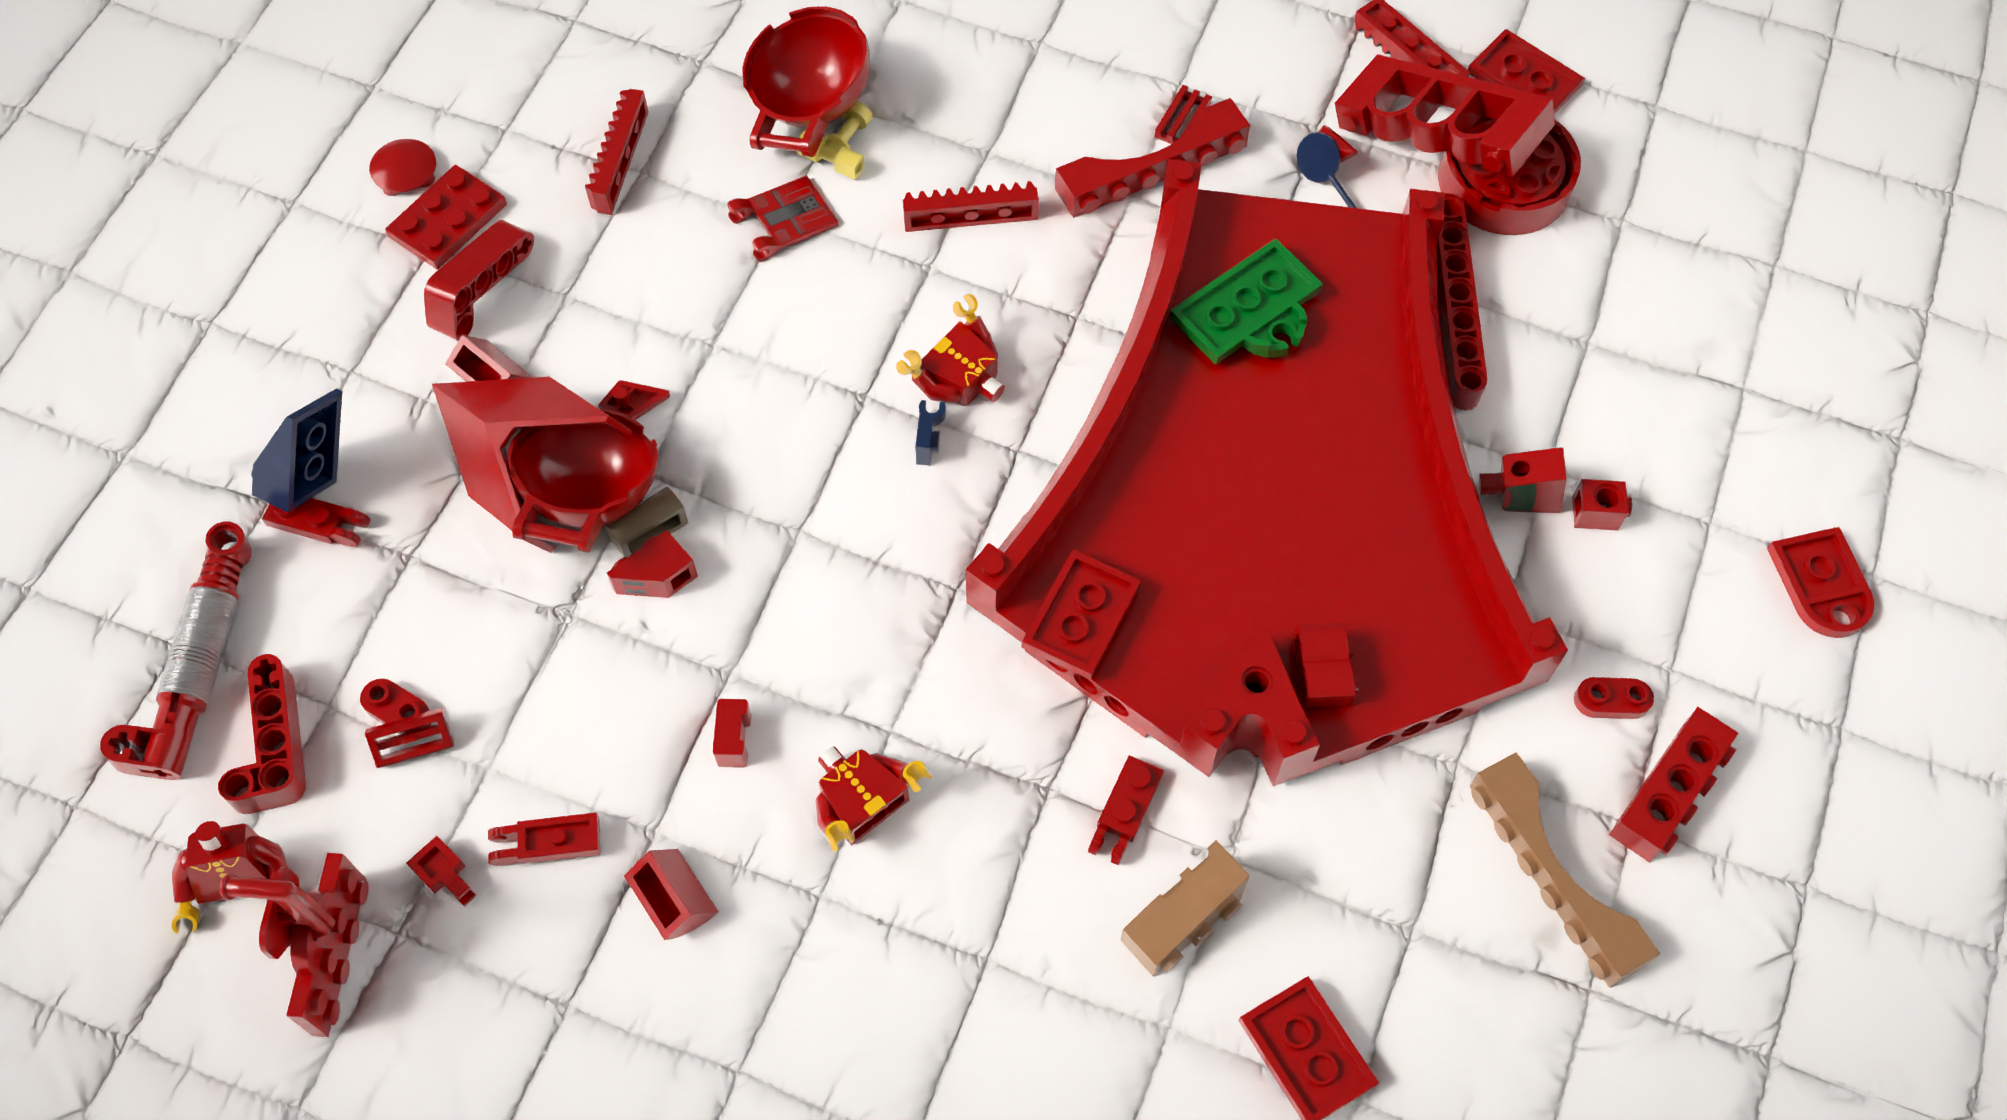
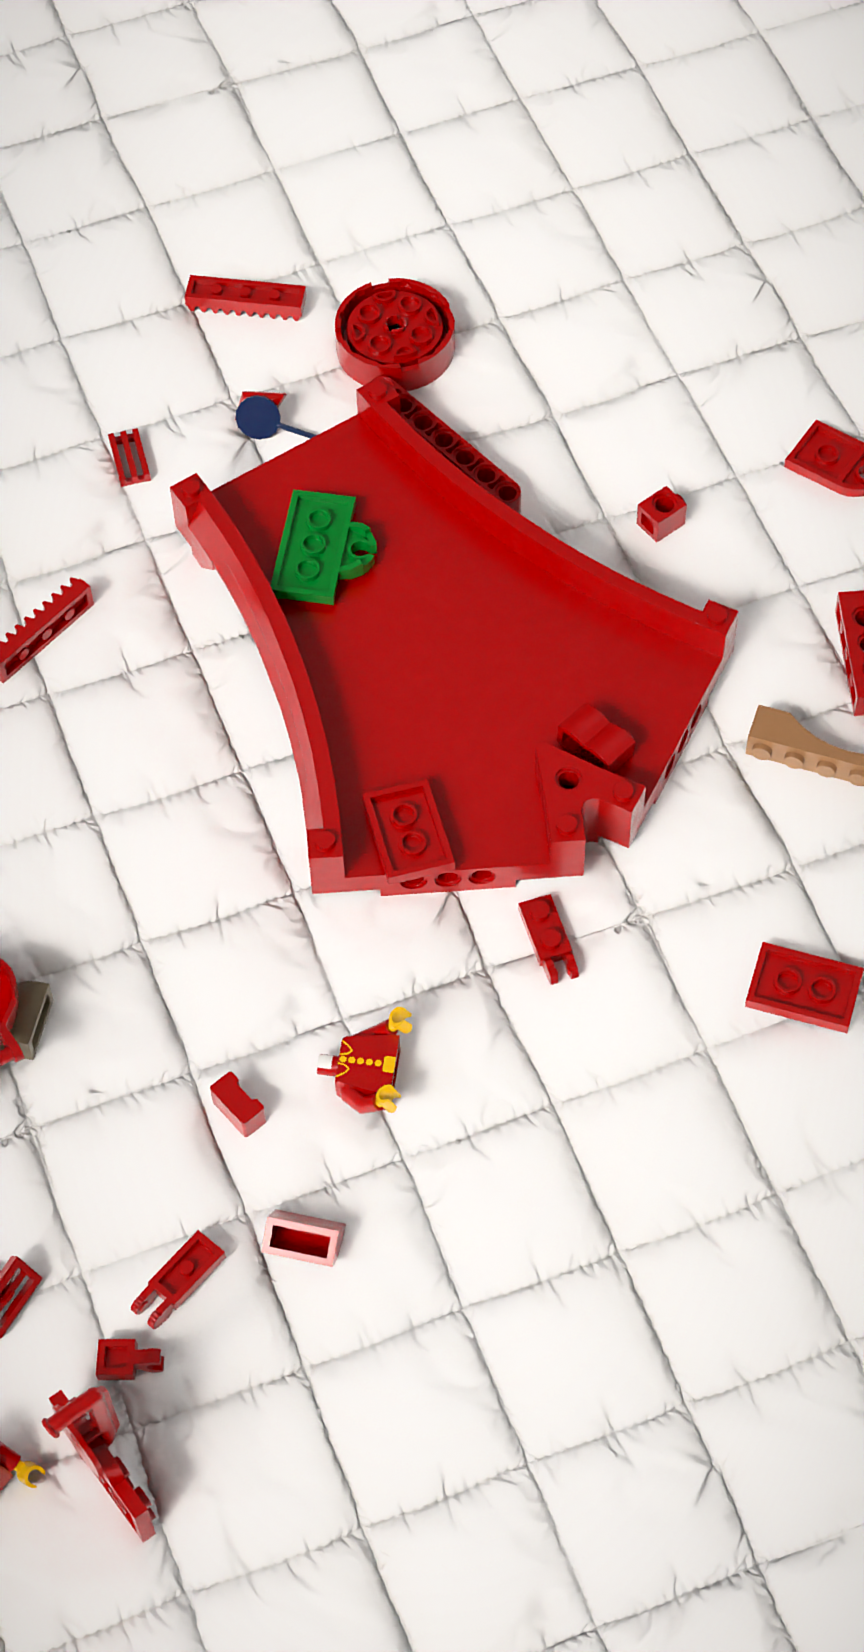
camera: 40 degrees left, 5 degrees down
(654, 570) = (68, 1045): red slope -> none
(928, 439) = (171, 807): dark blue plate -> none
(959, 364) = (145, 738): red torso -> none
(1096, 182) = (113, 547): red arch -> none
(1186, 911) = (652, 962): medium nougat wedge -> none
(1502, 149) = (390, 321): red fence -> none
(1524, 67) = (341, 262): red tile -> none
(1528, 481) = (608, 529): red torso -> none
(1615, 699) = (782, 627): red plate -> none

